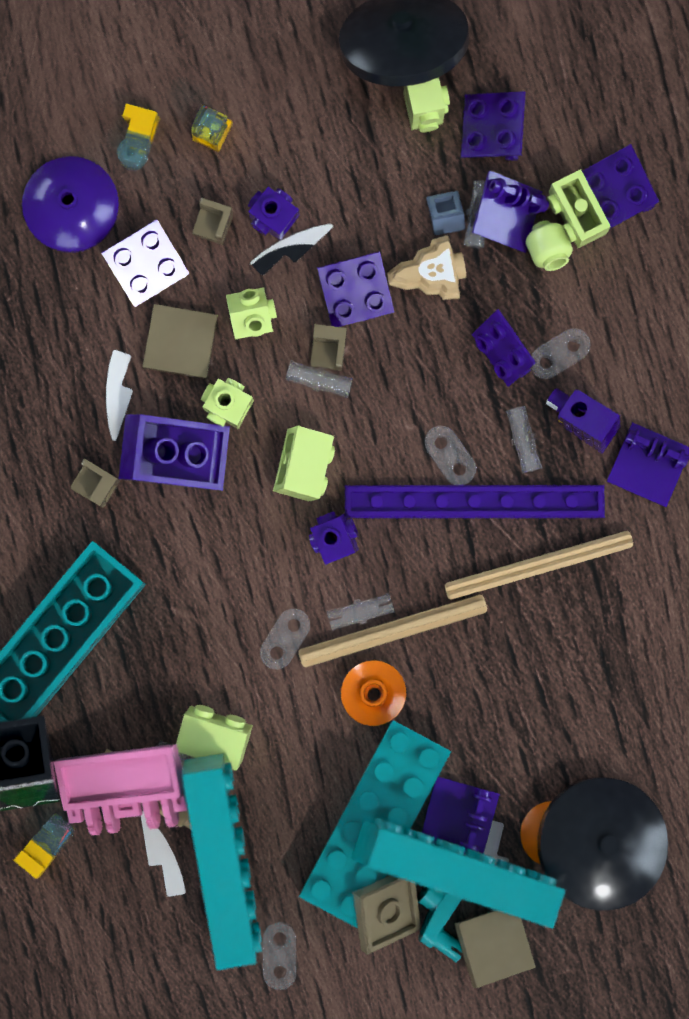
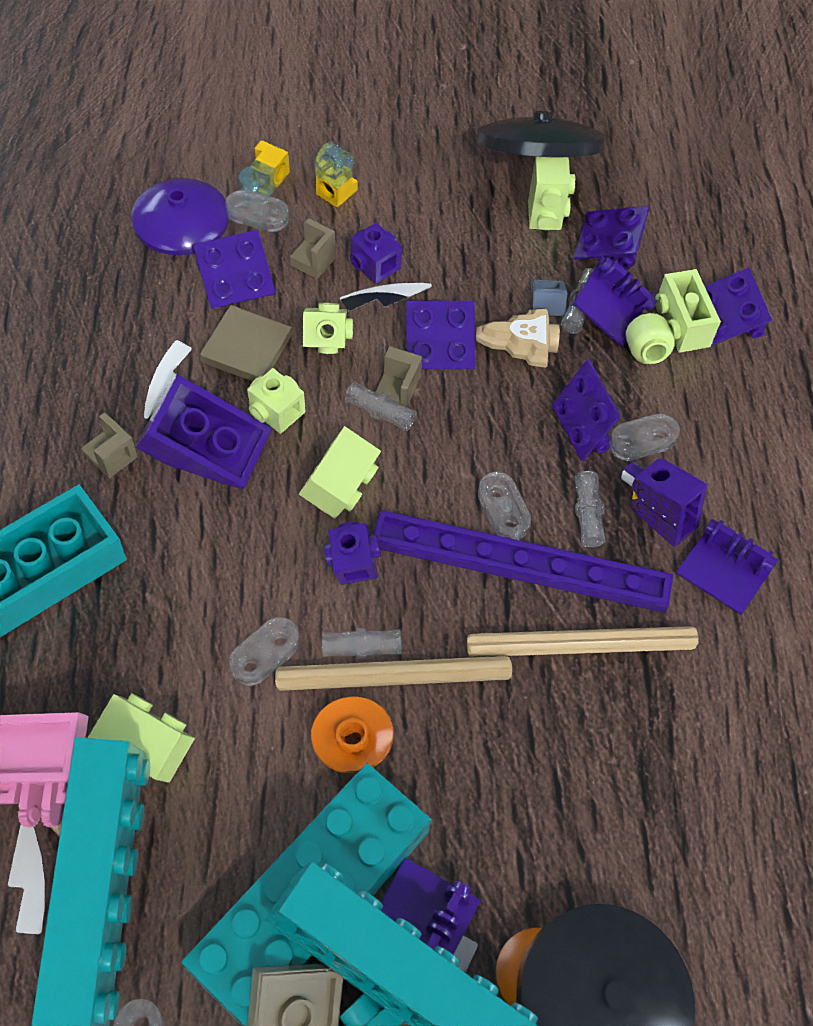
camera: 10 degrees right, 25 degrees down
(145, 184) = (257, 210): none -> clear plate

